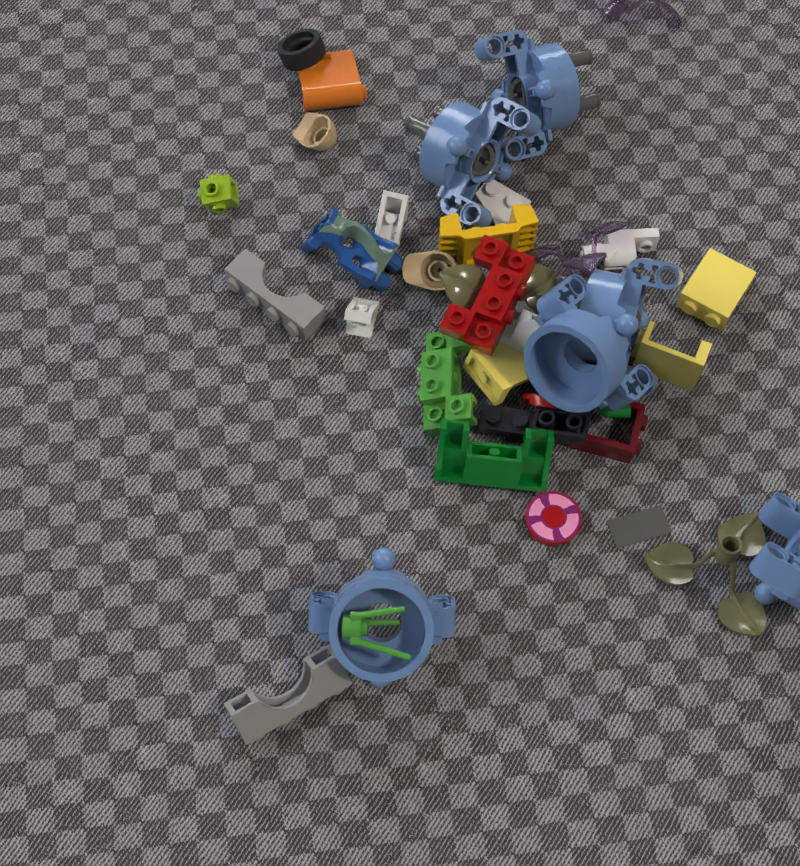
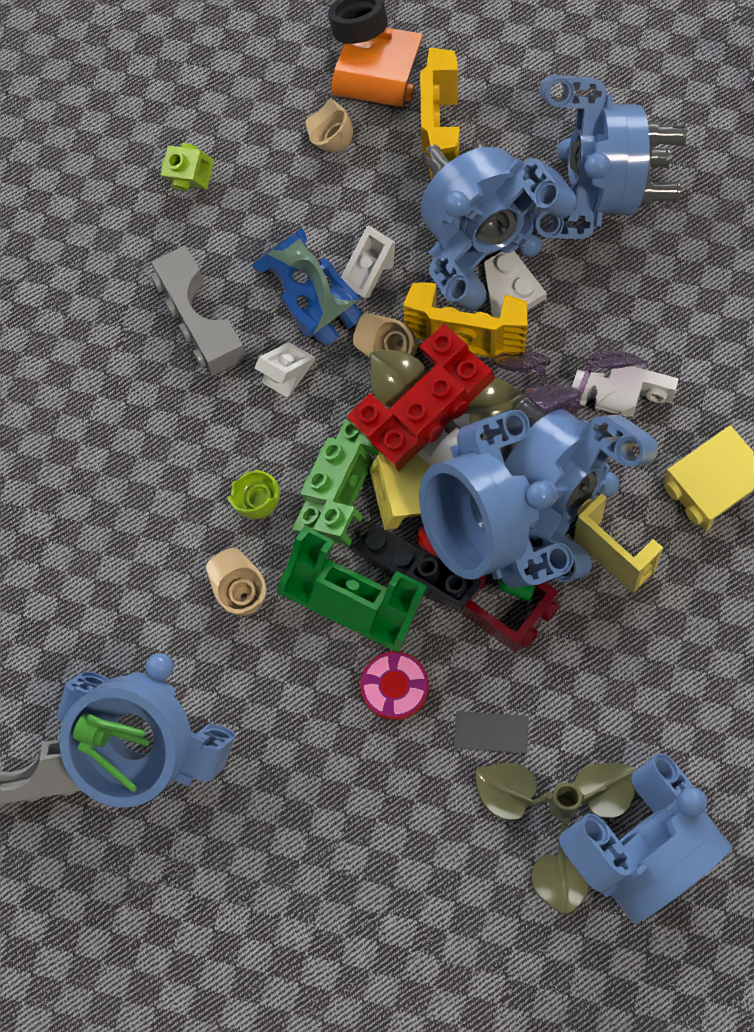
camera: 30 degrees right, 5 degrees up
(383, 414) = (255, 495): none -> lime hair
(390, 103) = (439, 88): none -> yellow plate
(398, 478) = (235, 576): none -> tan cap

